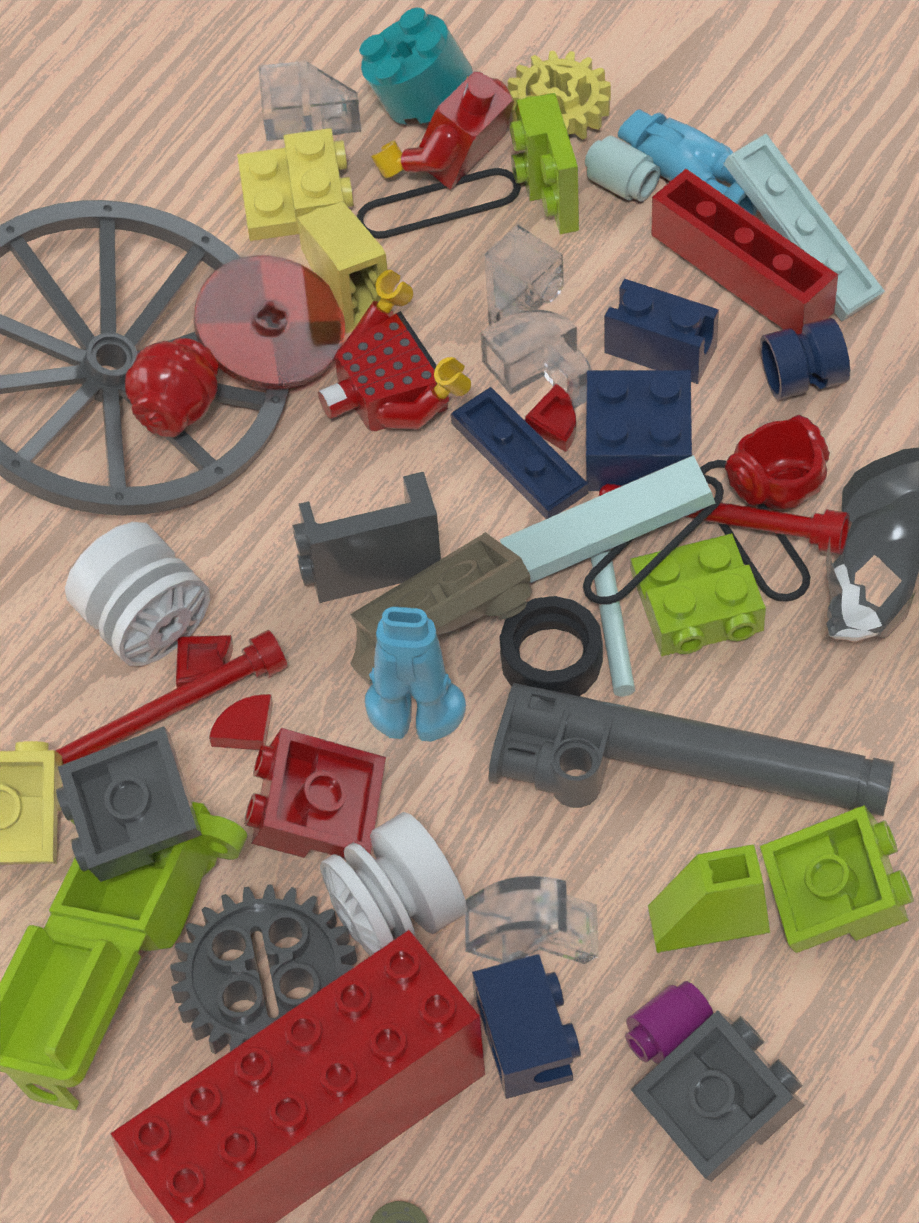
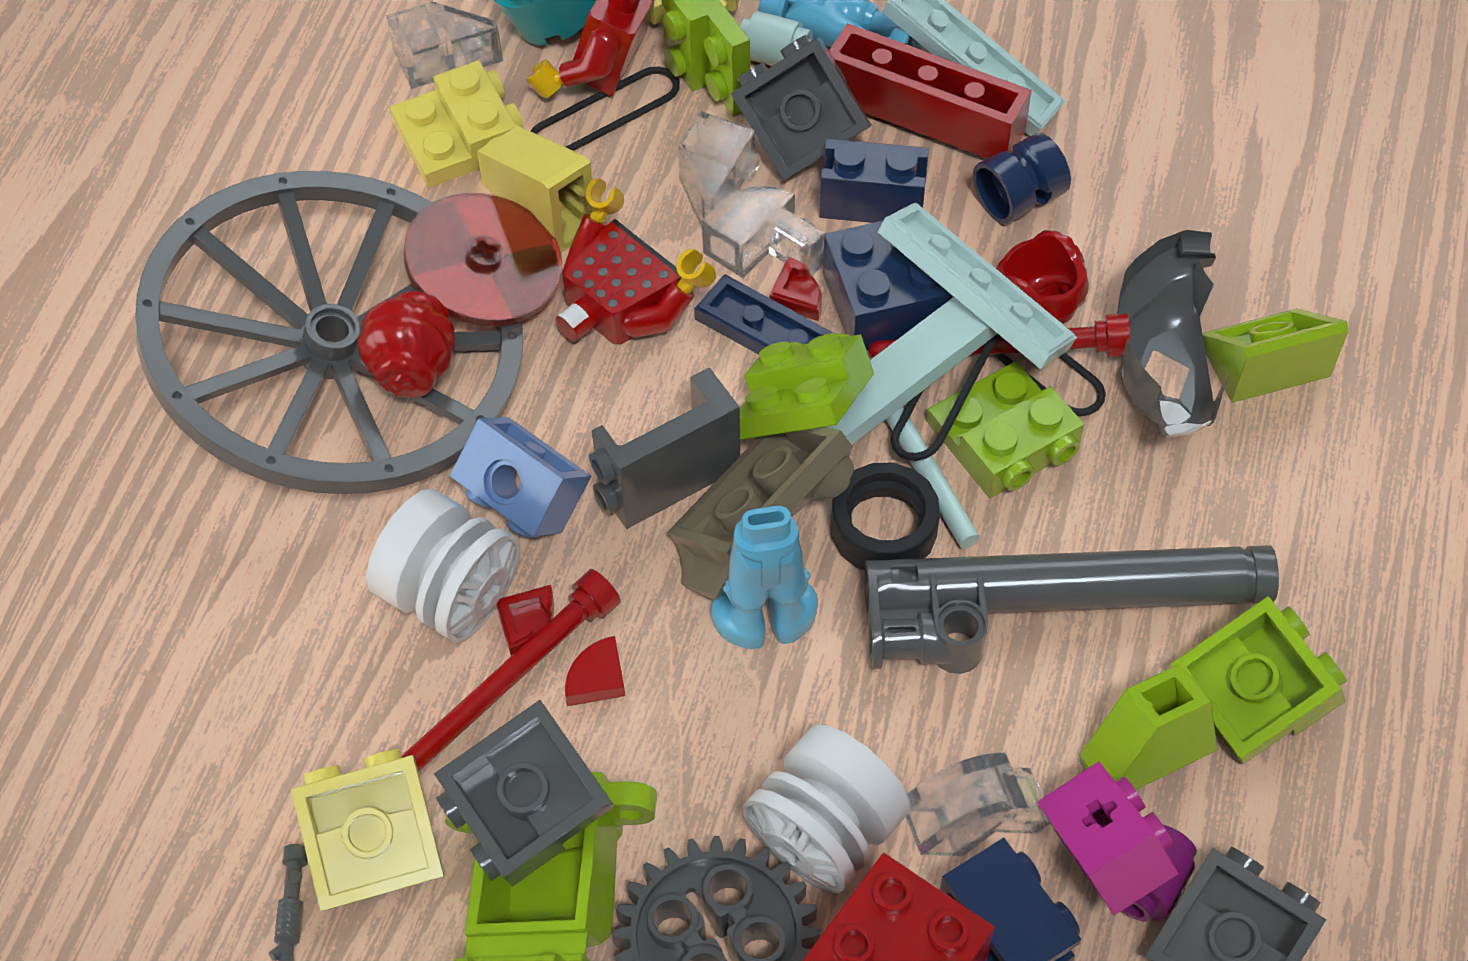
camera: 20 degrees left, 0 degrees up
(233, 531) = (548, 480): none -> medium blue brick
(314, 795) = (701, 731): red plate -> none
(514, 508) = (804, 384): none -> lime plate
(613, 239) = (799, 105): none -> dark grey plate
(630, 977) = (1109, 837): none -> dark pink brick
(707, 453) = (977, 285): none -> light aqua tile

